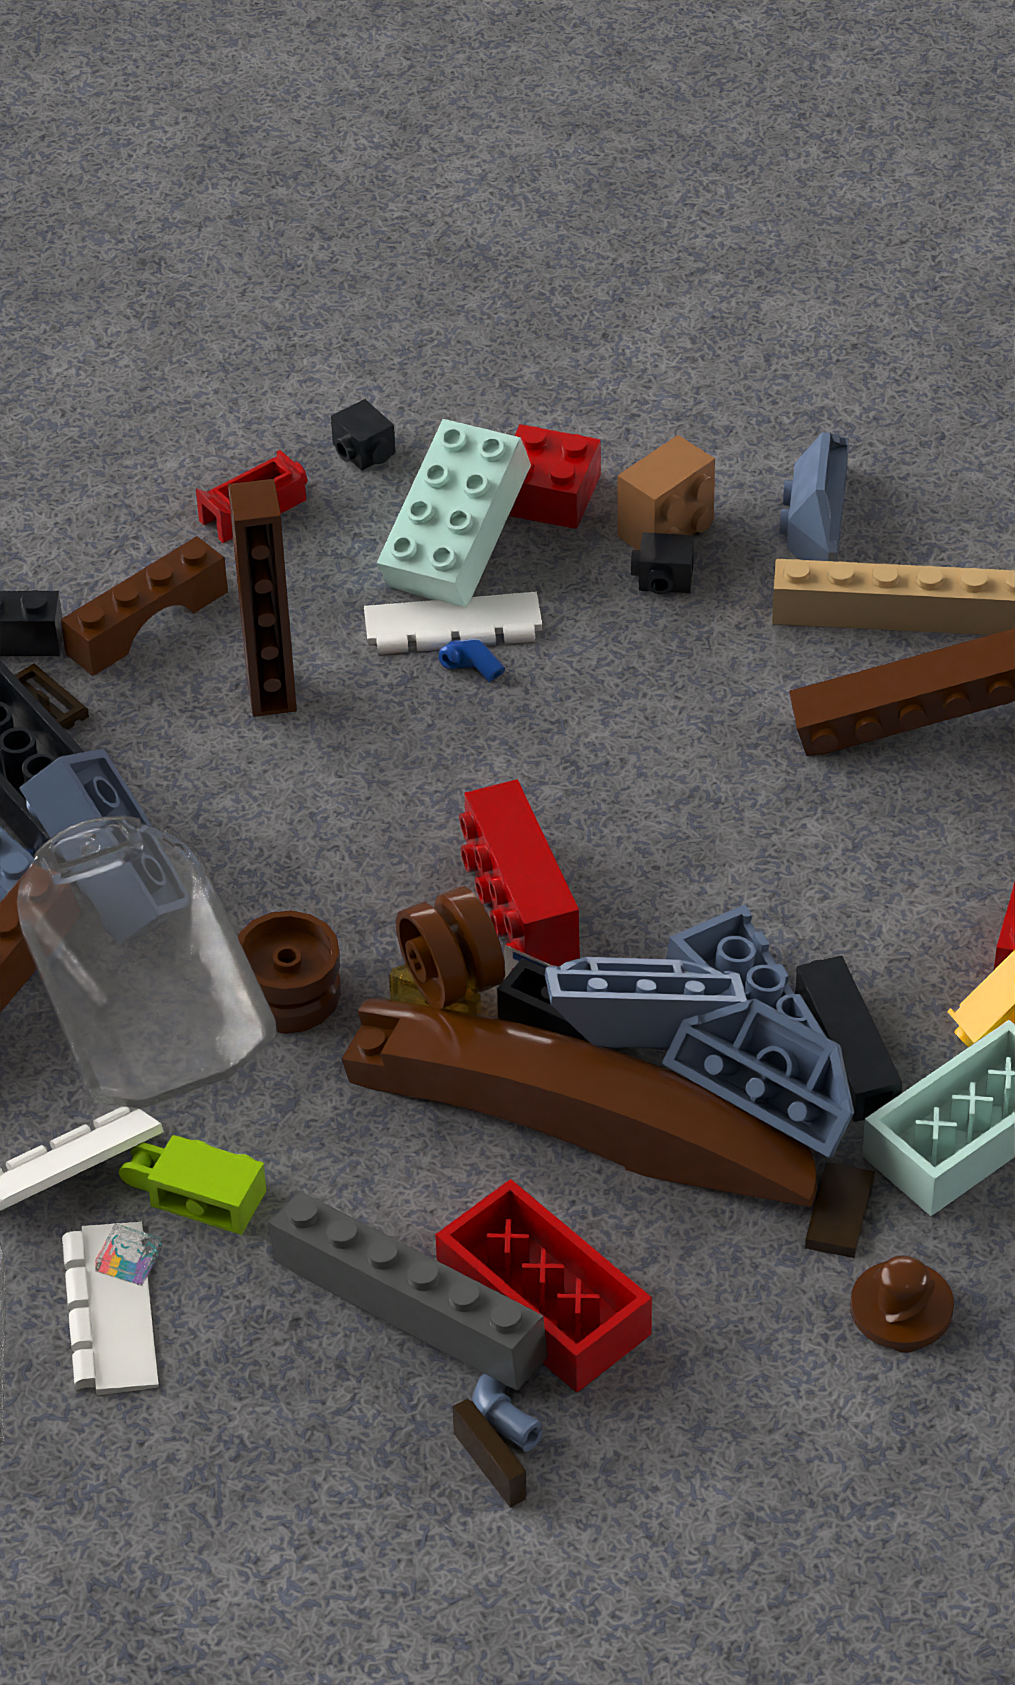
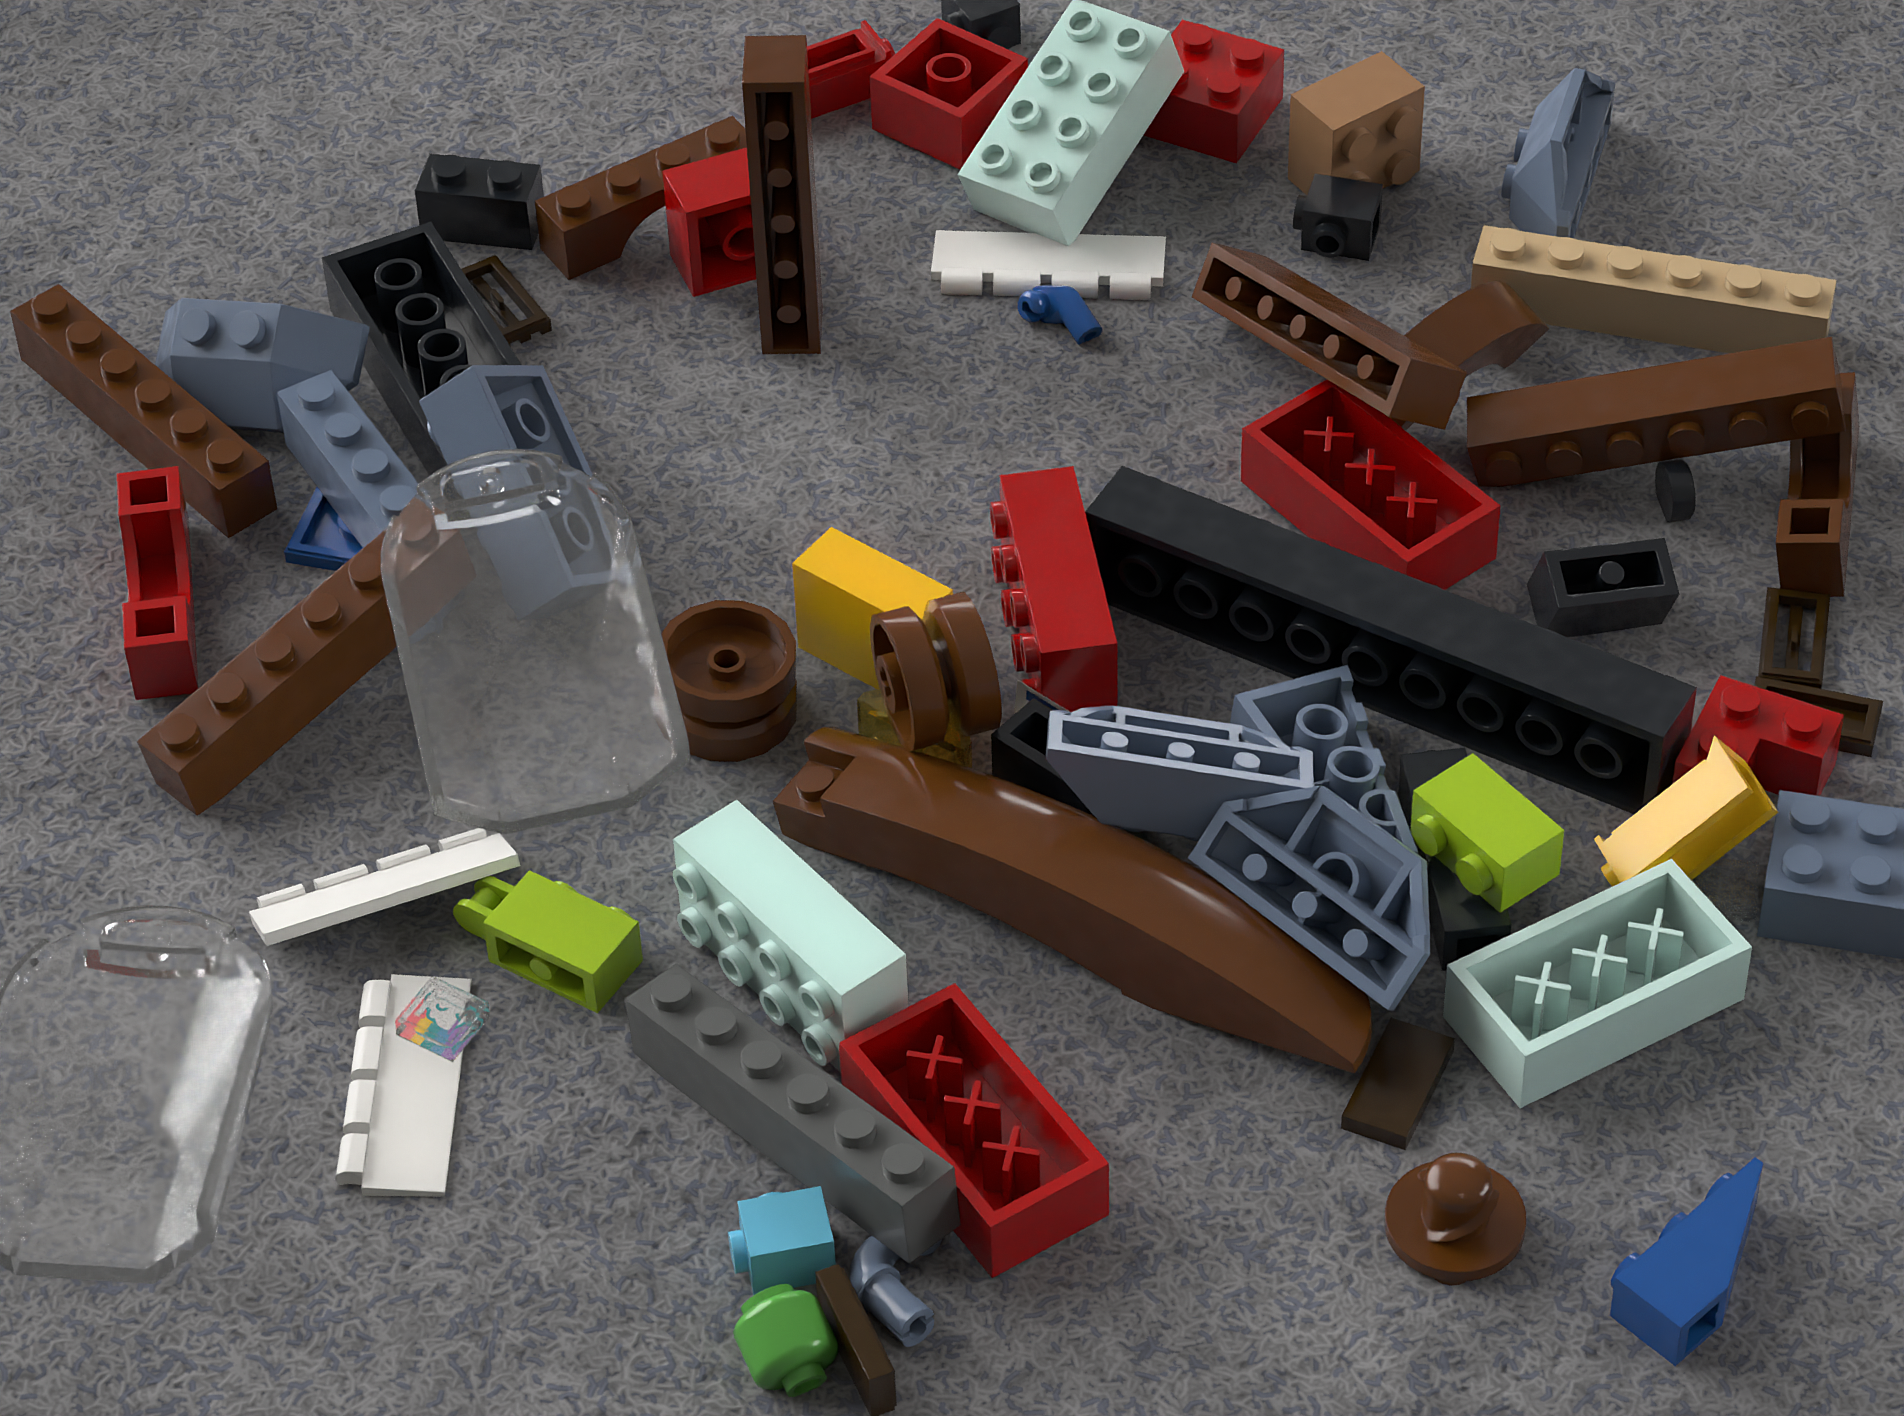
camera: 10 degrees right, 0 degrees up
(203, 617) = (711, 222): none -> red brick
(353, 499) = (943, 91): none -> red brick
(366, 897) = (840, 589): none -> yellow brick
(376, 1158) = (785, 932): none -> light aqua brick
(420, 1386) = (782, 1238): none -> medium azure brick
(438, 1459) = (786, 1340): none -> bright green head
(682, 657) = (1329, 336): none -> reddish brown brick
(732, 772) = (1368, 487): none -> red brick
(773, 650) = (1479, 329): none -> reddish brown arch
(788, 883) = (1407, 643): none -> black brick
(873, 1017) = (1486, 833): none -> lime brick
(915, 823) = (1603, 587): none -> black brick
(951, 742) = (1675, 490): none -> black tile

